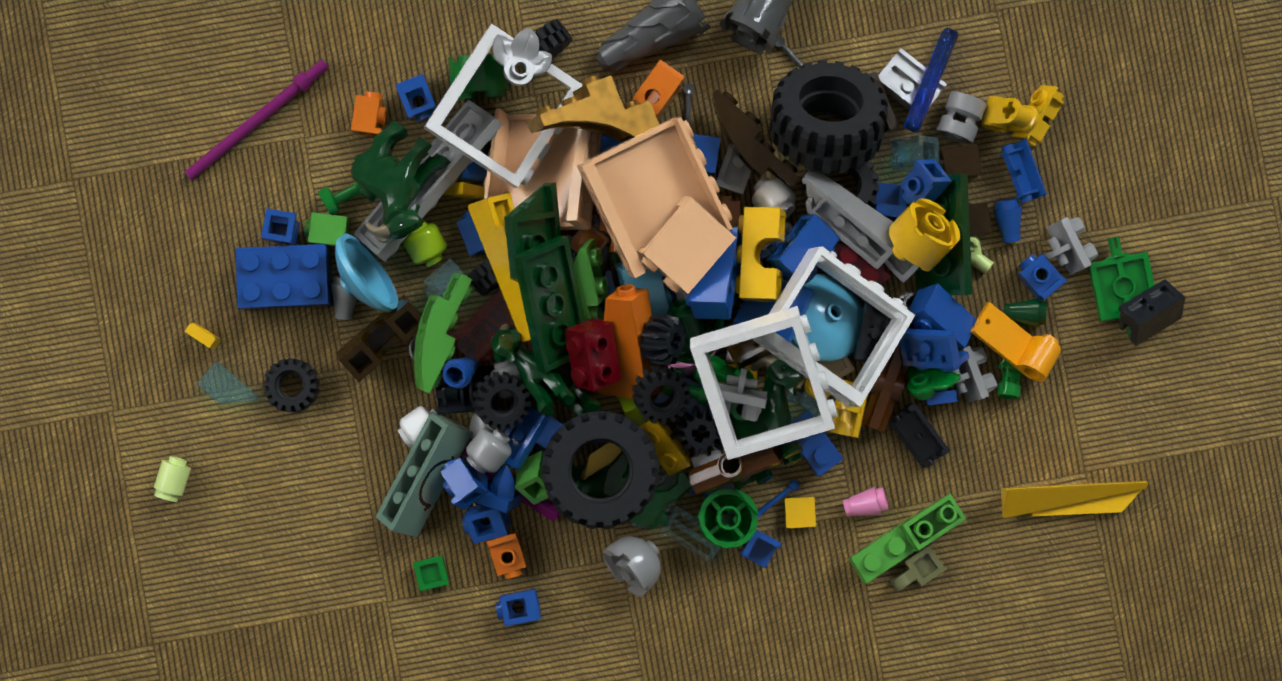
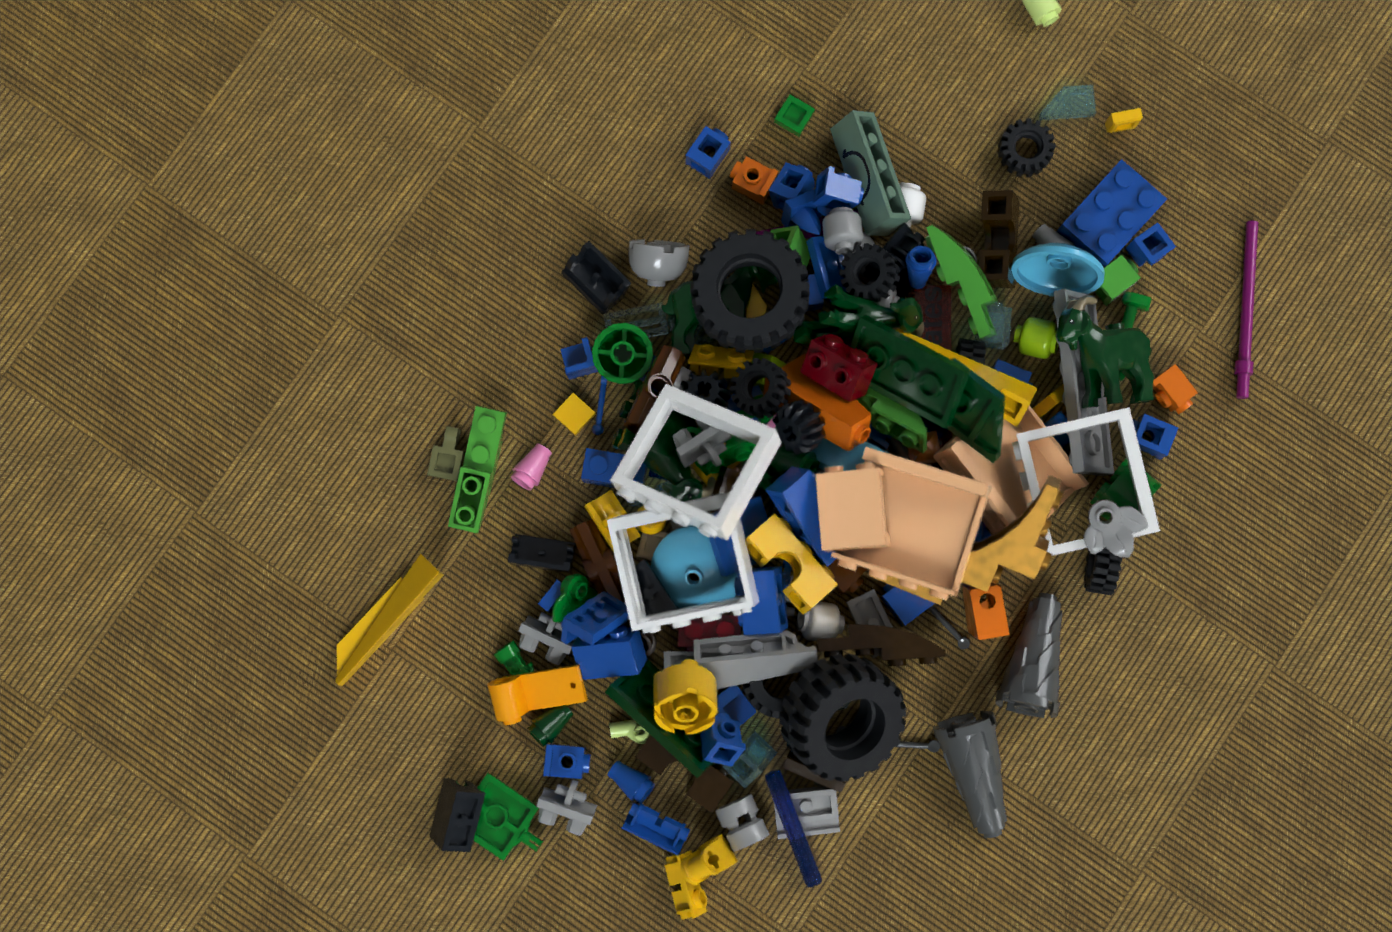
camera: 135 degrees right, 5 degrees down
(690, 593) = (596, 278): none -> black hinge

